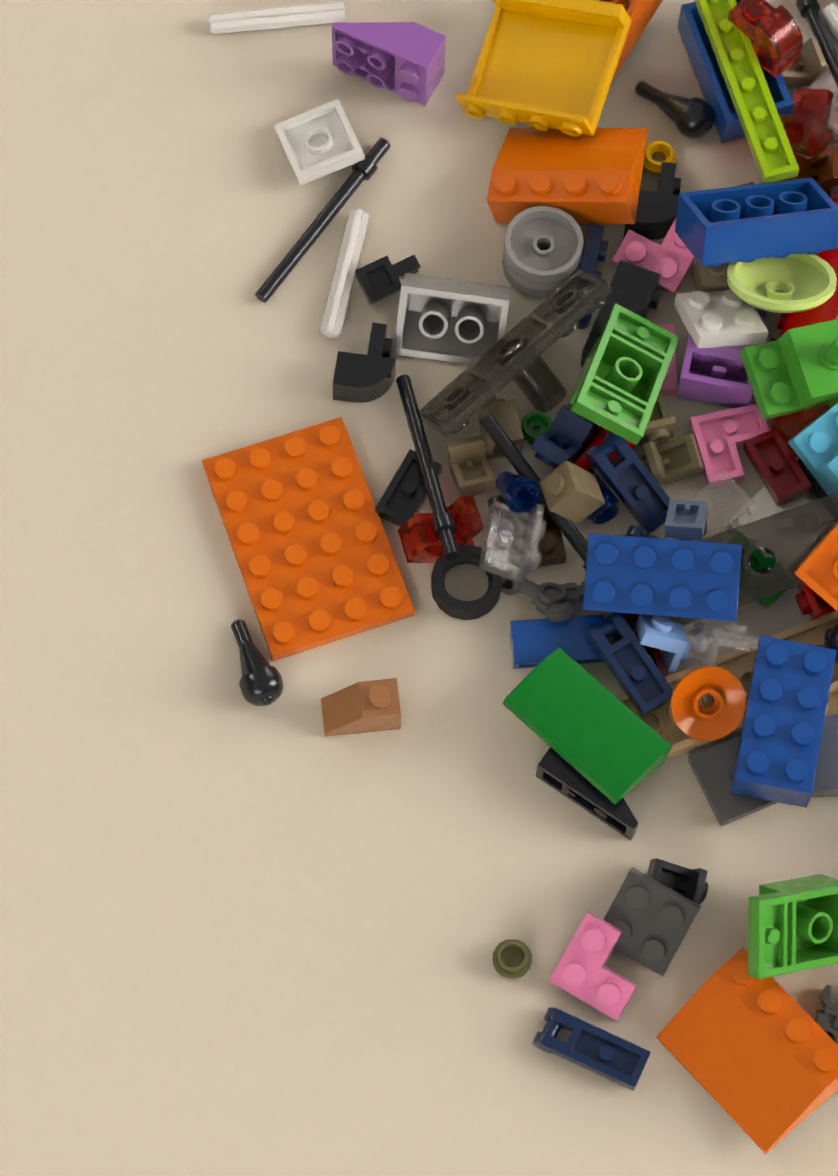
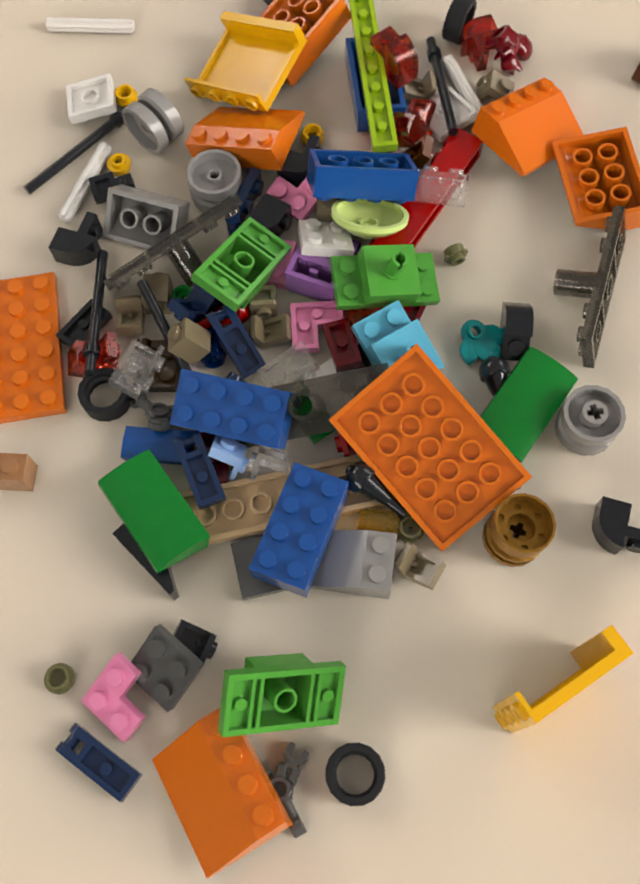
camera: 15 degrees right, 0 degrees up
(369, 122) = (125, 95): none -> yellow plate
(383, 247) = (119, 164): none -> yellow plate
(391, 56) = (150, 50): medium lavender slope -> none
(429, 170) = (153, 120): none -> light grey wheel
(518, 491) = (153, 340): clear blue cone -> none
(686, 519) = (263, 371): sand blue bracket -> none
(692, 116) = (339, 110): black piece -> none
(717, 717) = (243, 519): orange dish -> none

